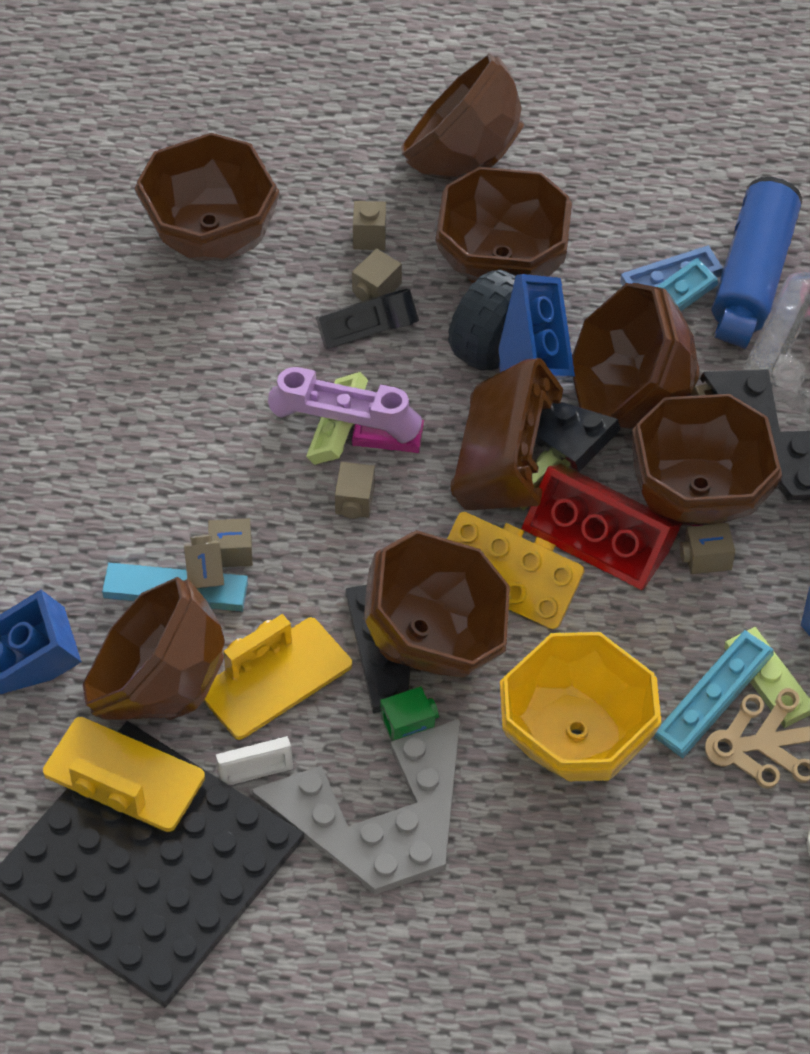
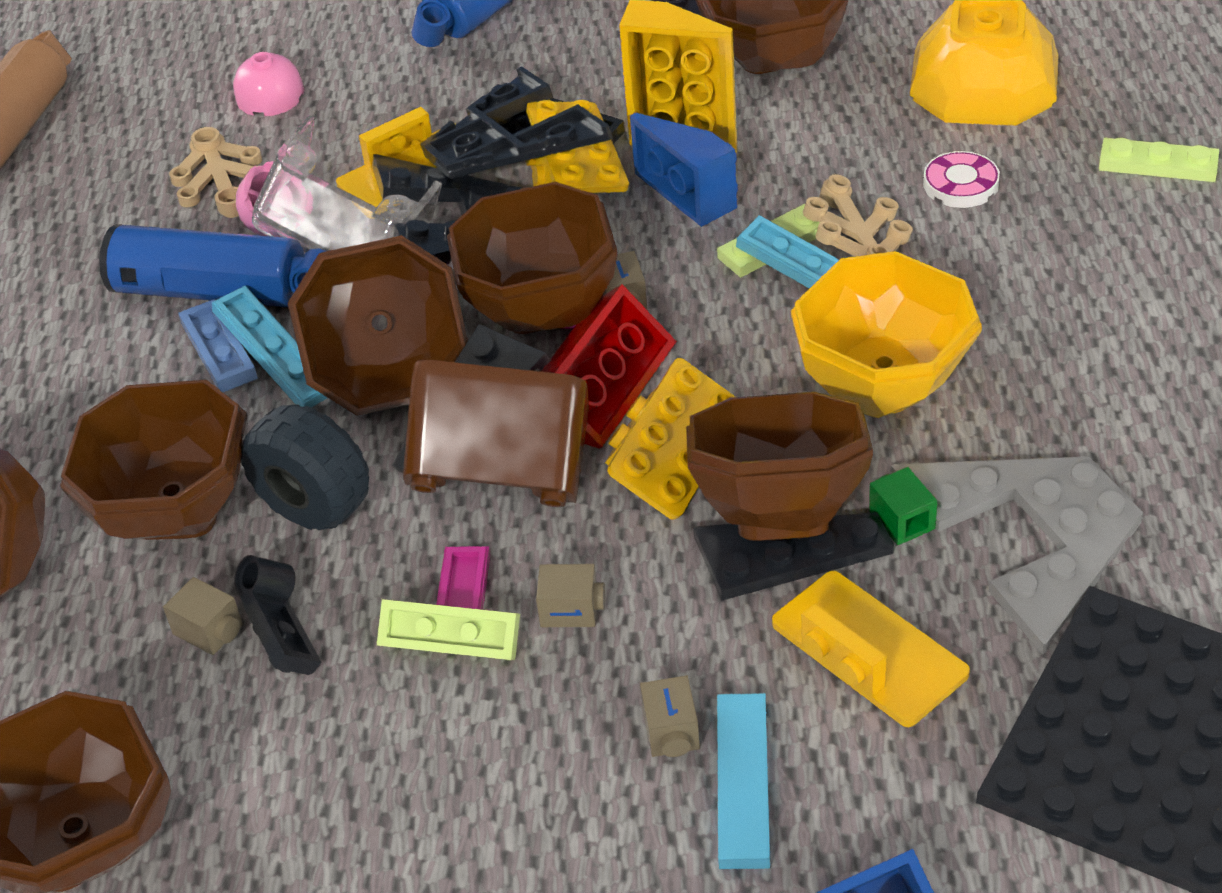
camera: 90 degrees left, 10 degrees down
(124, 774) = (1078, 767): yellow bracket -> none
(157, 656) = (898, 775): reddish brown rock -> none
(204, 561) = (729, 716): dark tan brick -> none
(255, 761) = (1007, 641): white tile -> none
(369, 225) = (108, 631): dark tan brick -> none
(385, 409) = (430, 636): lavender plate -> none
(537, 326) = (370, 417): blue slope -> none

